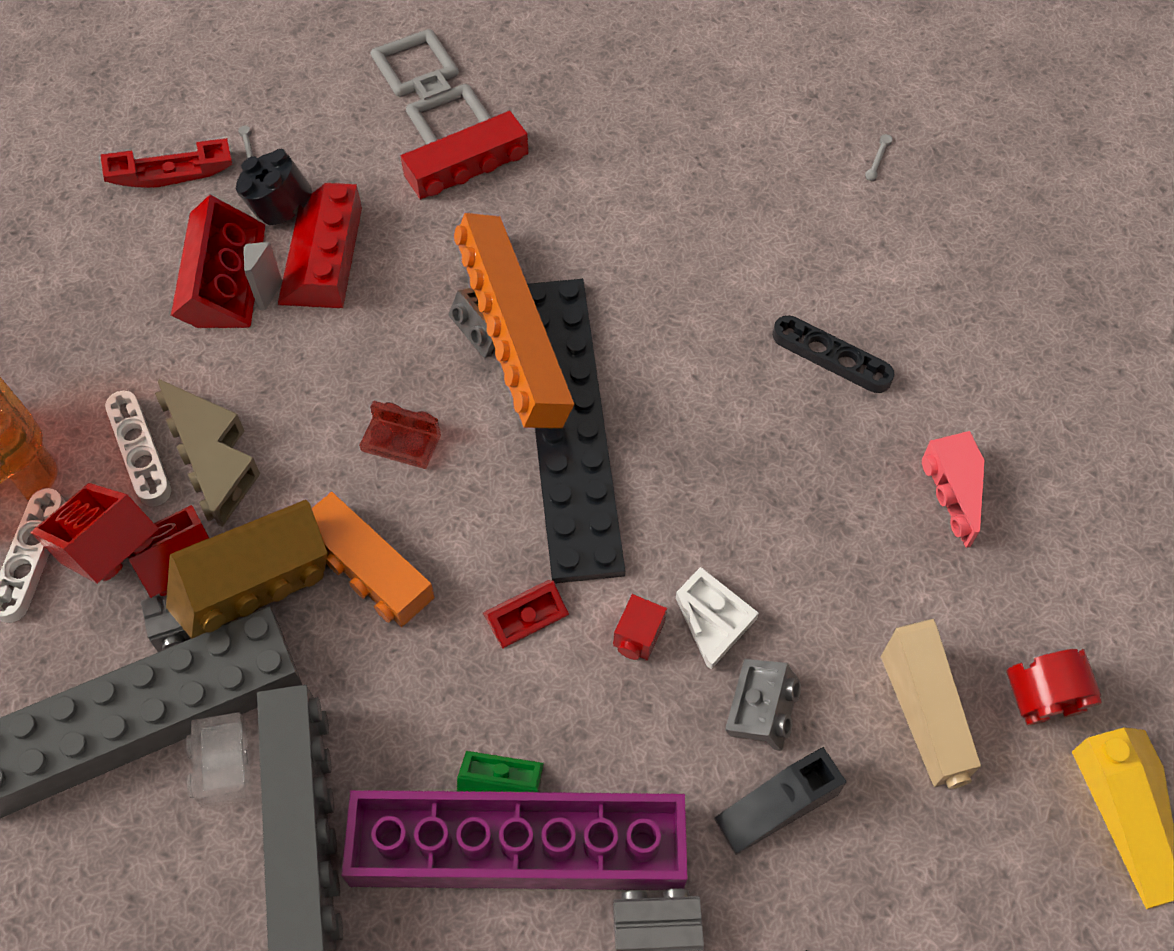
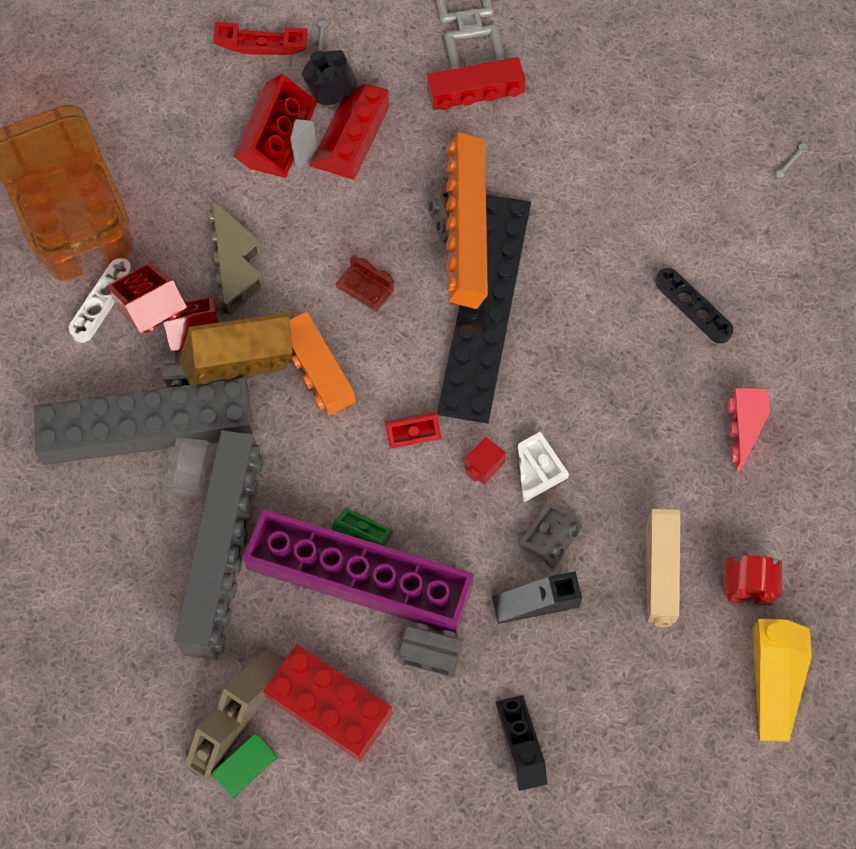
camera: 20 degrees right, 5 degrees up
(136, 448) = (190, 245): white beam -> none

